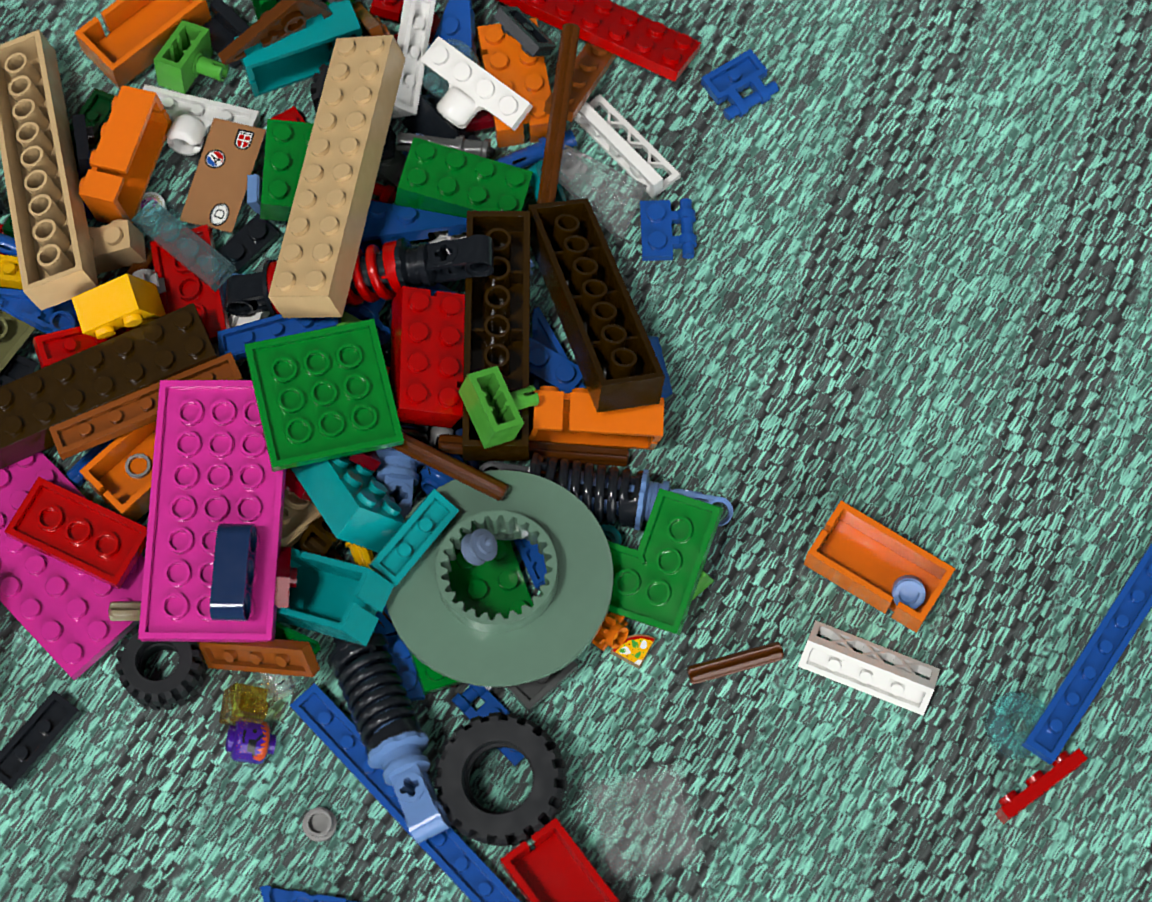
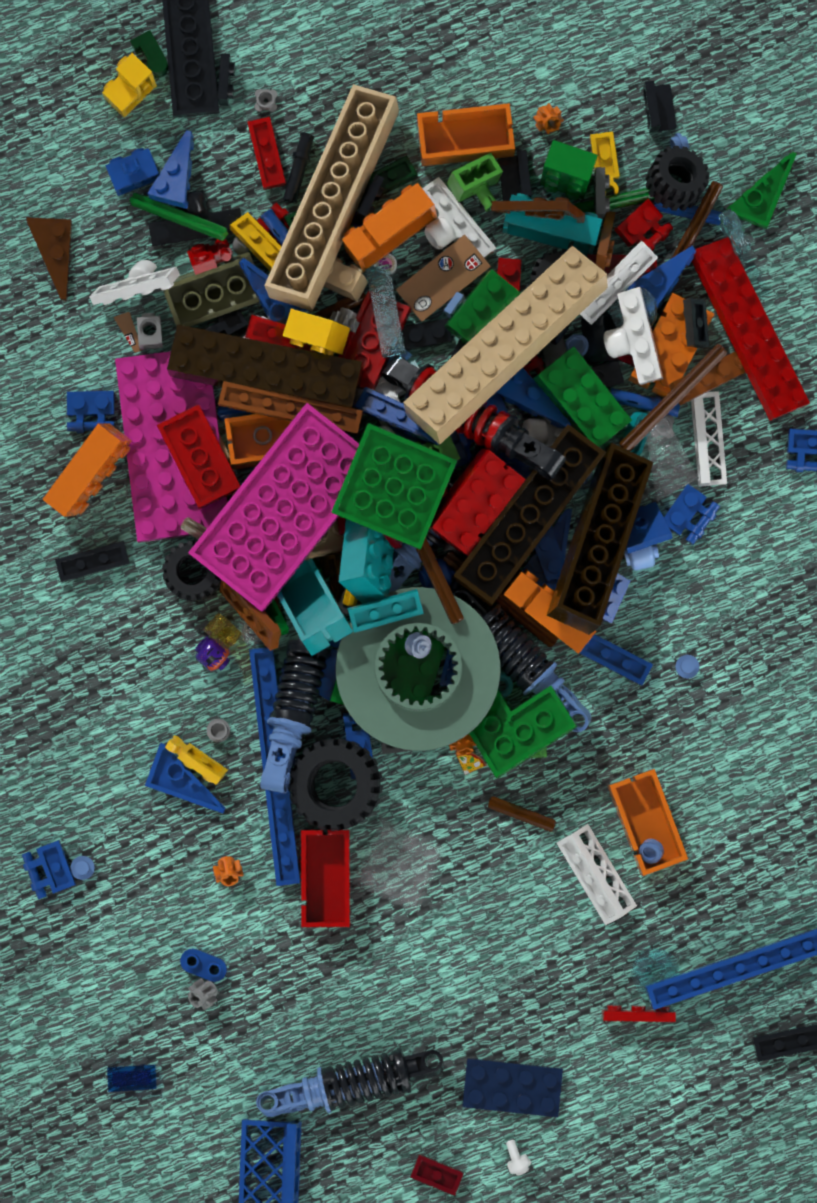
camera: 35 degrees right, 15 degrees up
(233, 572) = (267, 557): dark blue beam -> none
(285, 578) = (295, 580): dark red plate -> none
(315, 876) = (197, 760): none -> yellow plate
(475, 147) = (600, 367): dark grey pin -> none
(493, 407) = (487, 569): bright green brick -> none
(638, 266) = (648, 528): none -> blue plate
(650, 299) = (642, 558): none -> light blue head
(708, 425) = (617, 659): none -> blue plate
(787, 380) = (687, 666): none -> medium blue plate

